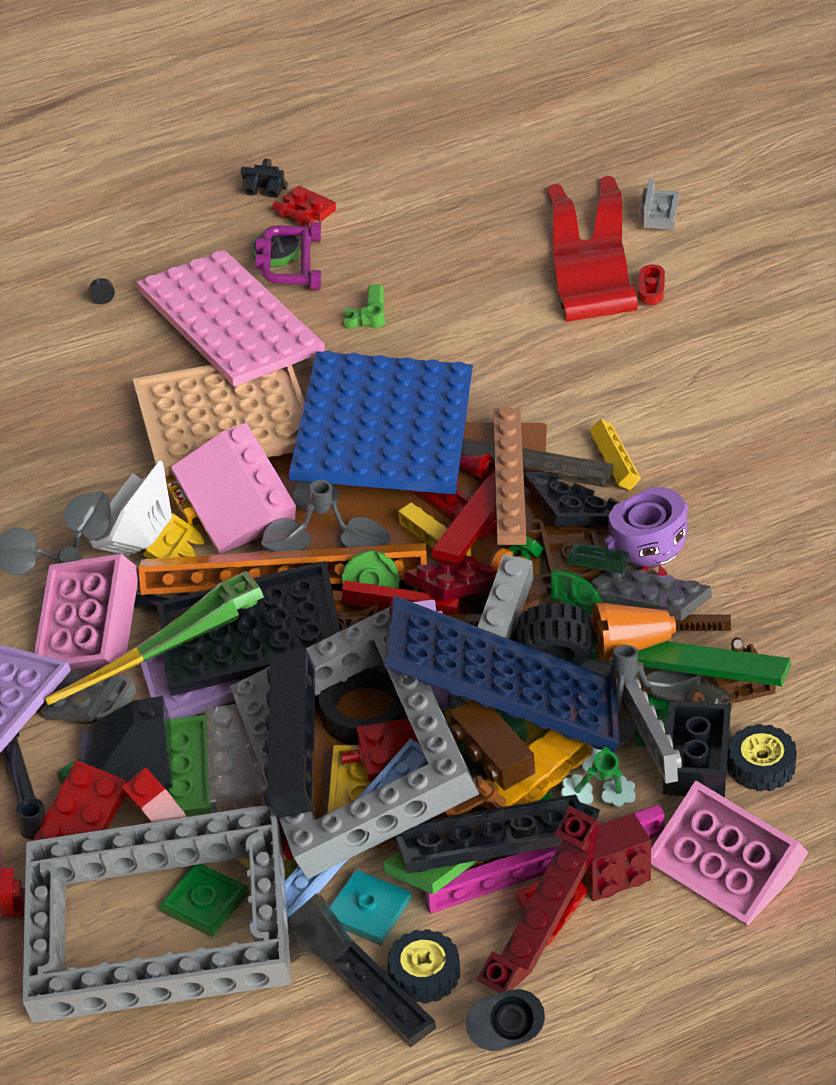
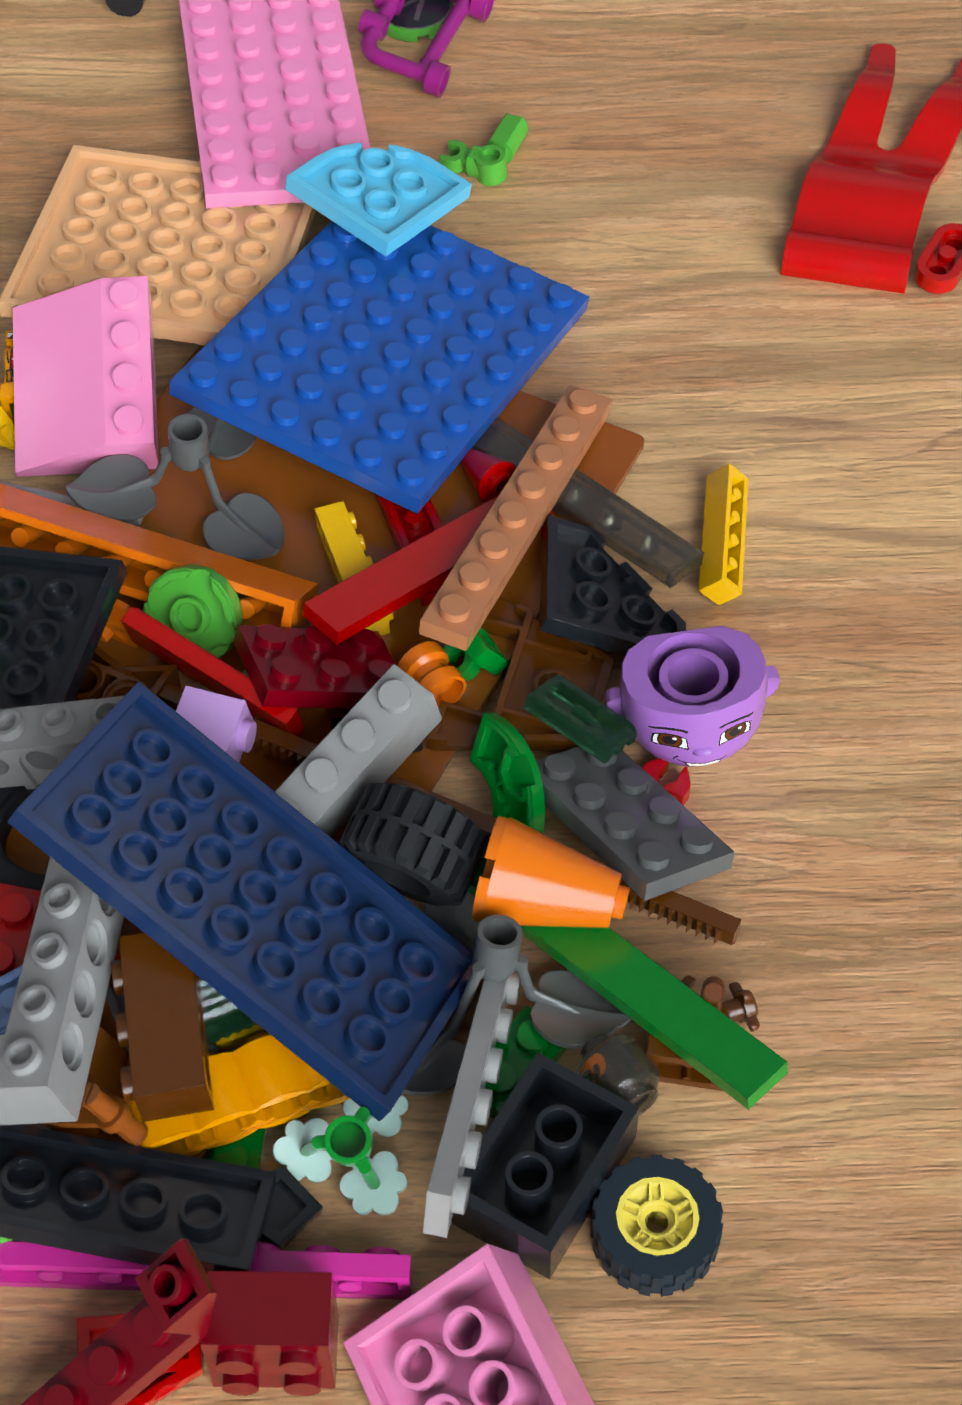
camera: 20 degrees right, 10 degrees up
(333, 345) = (378, 192): none -> medium azure plate

